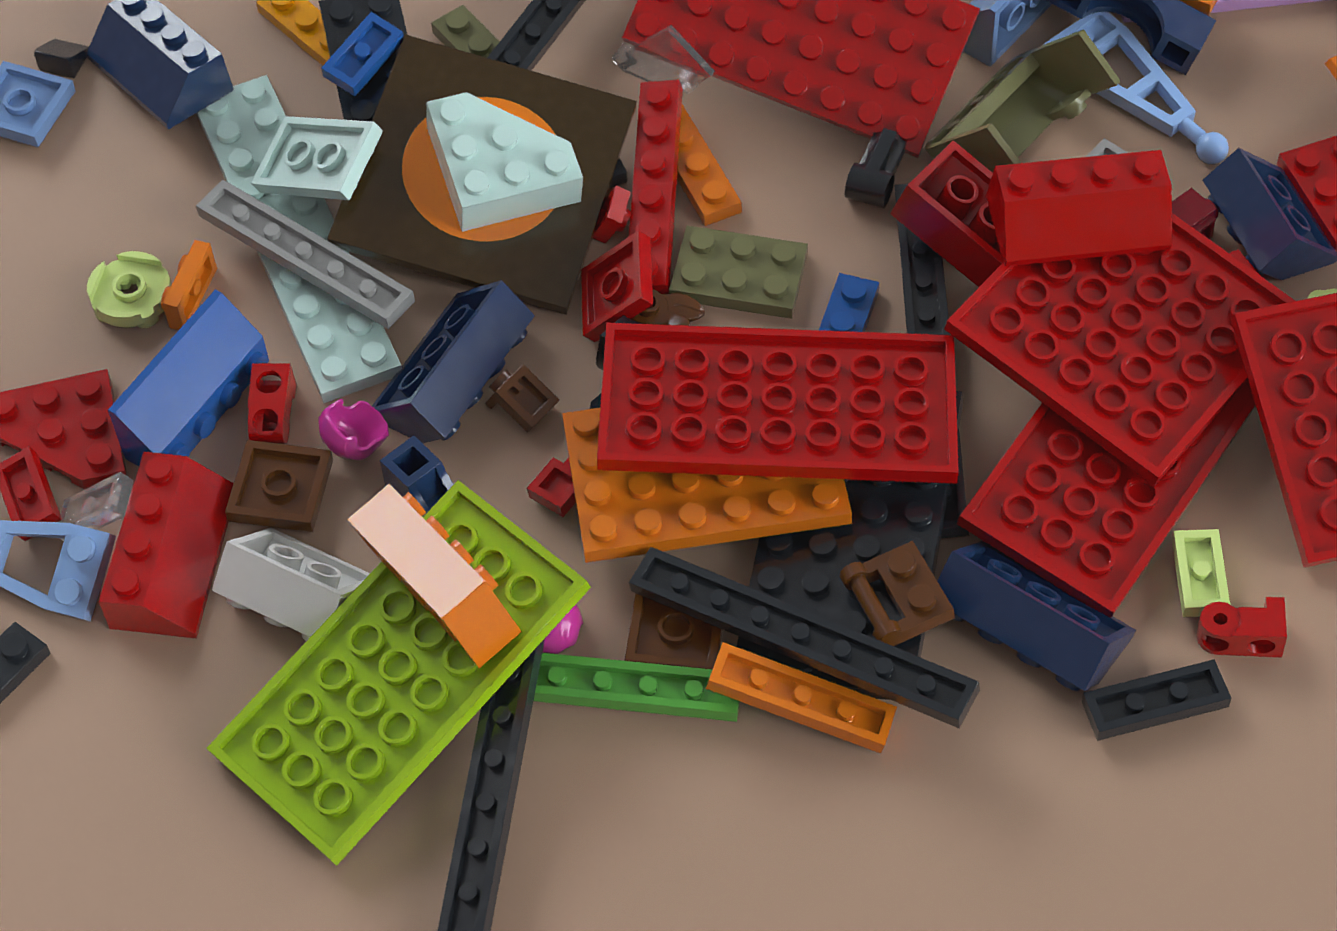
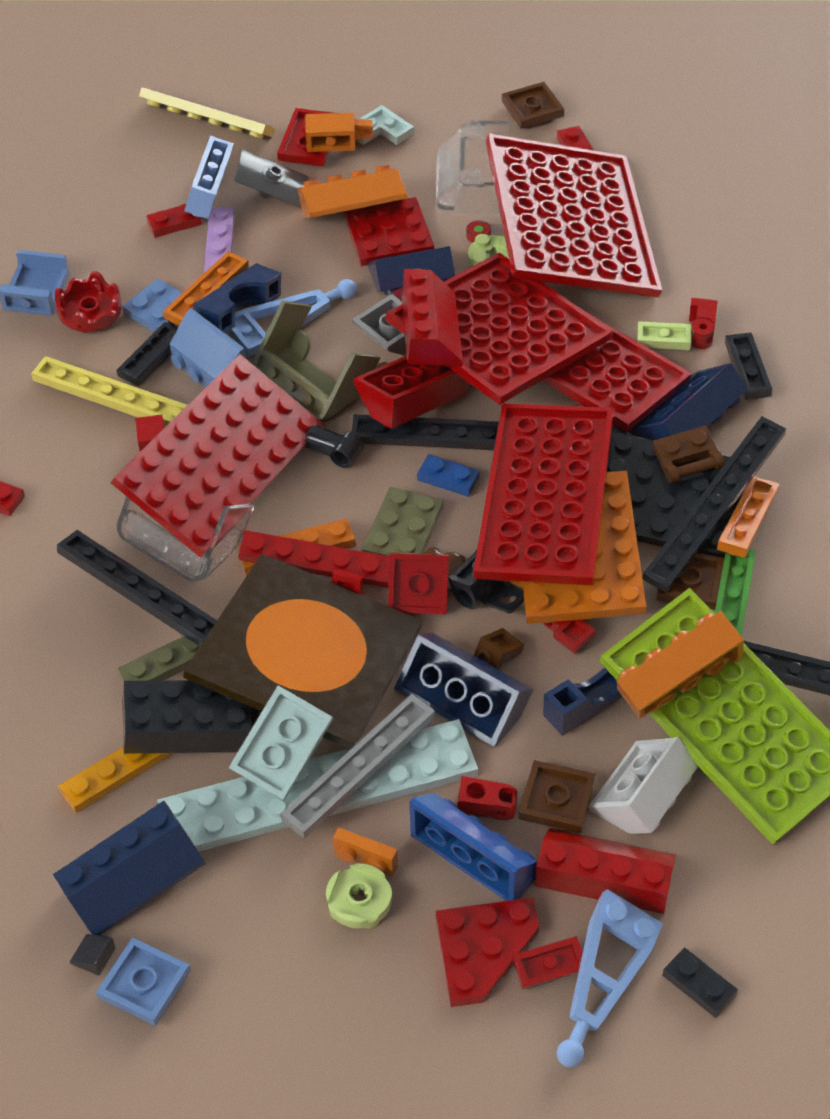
camera: 85 degrees left, 5 degrees down
(99, 503) = (575, 906): clear plate -> none
(352, 430) = (519, 744): dark pink hair -> none
(362, 54) = (195, 700): blue plate -> none
(498, 162) = (315, 628): light aqua brick -> none

